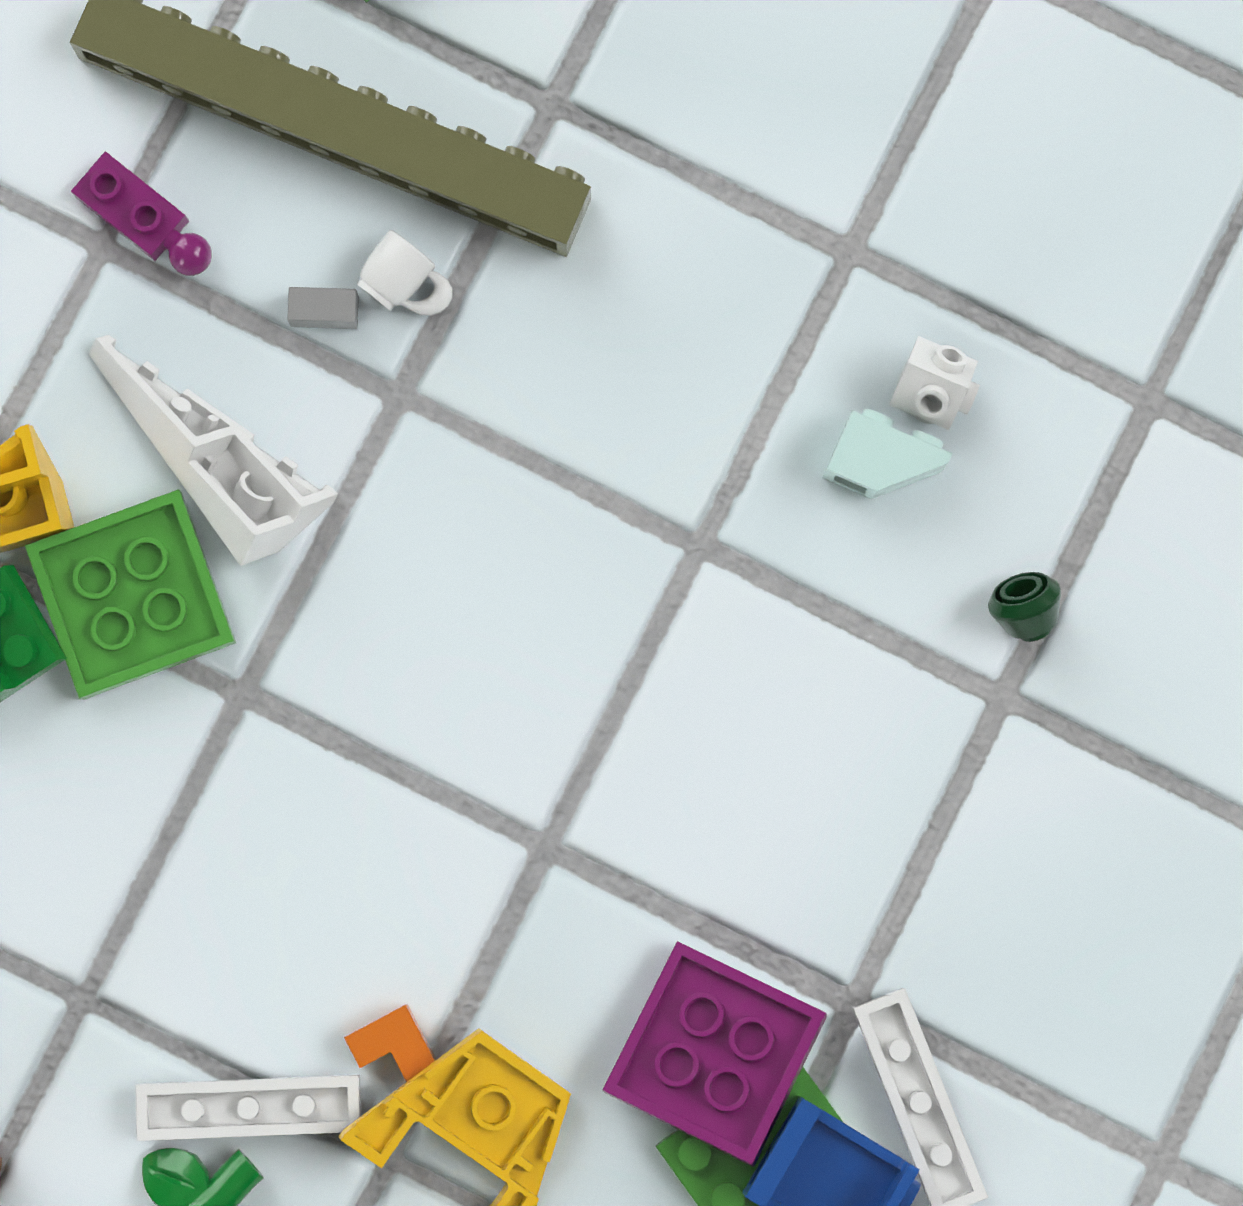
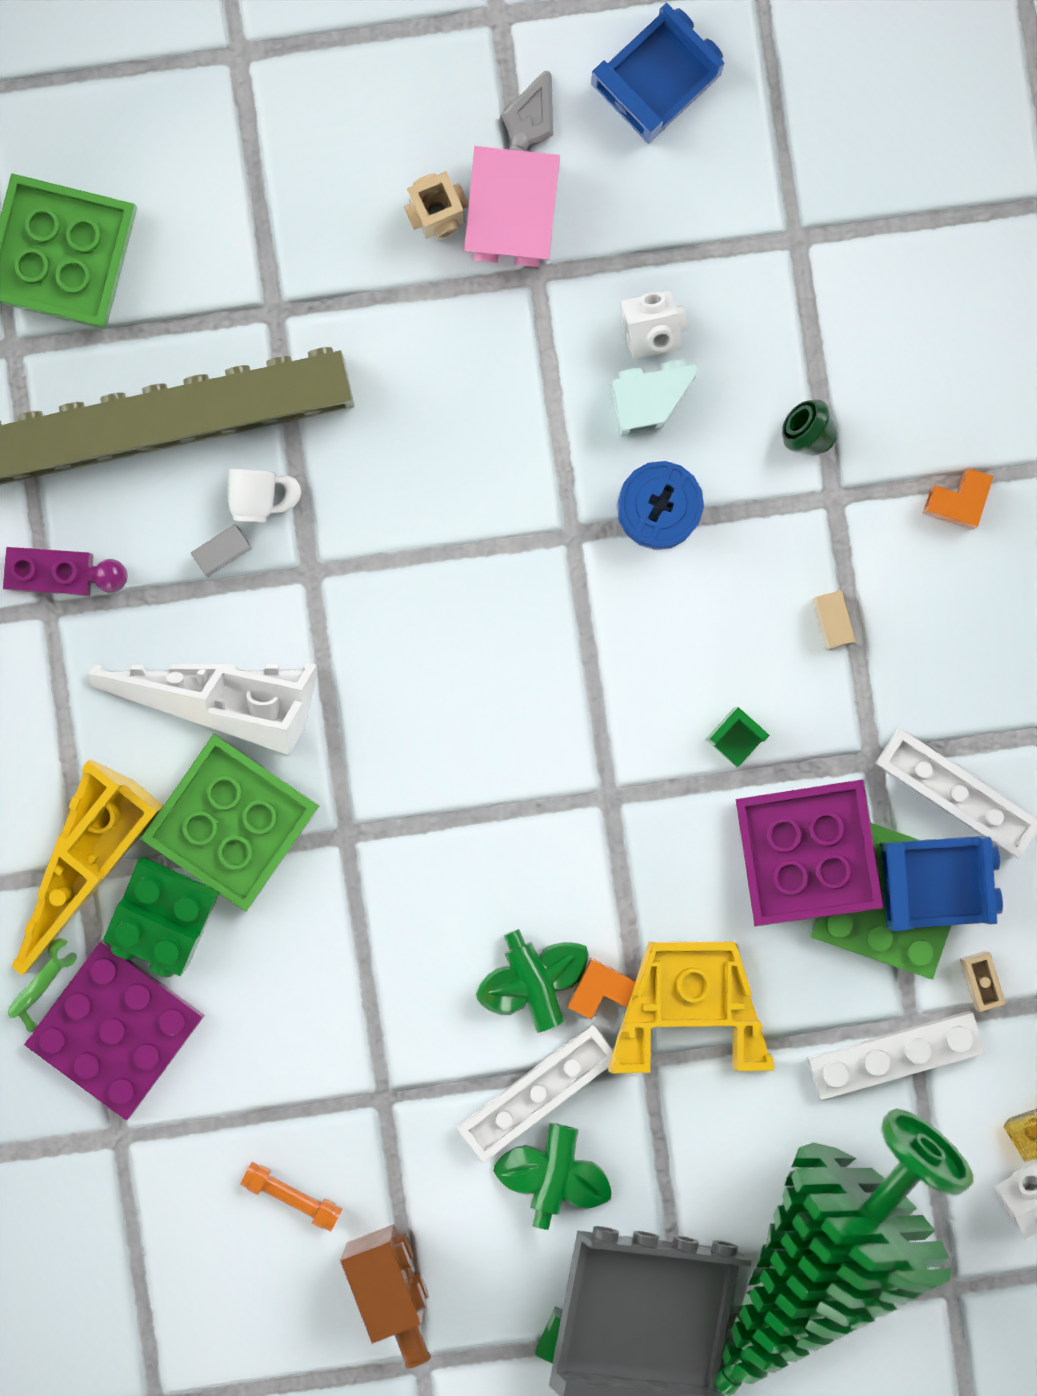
camera: 30 degrees left, 5 degrees up
(328, 983) = (533, 980): none -> green plant
(724, 876) = (737, 736): none -> green panel
(799, 91) = (434, 191): none -> tan brick
(817, 545) = (648, 483): none -> blue piece
(872, 160) = (511, 205): none -> bright pink panel
(913, 824) = (833, 619): none -> tan piece
(949, 91) = (531, 114): none -> light grey piece
(1121, 132) = (659, 73): none -> blue panel
(1134, 800) = (961, 506): none -> orange piece

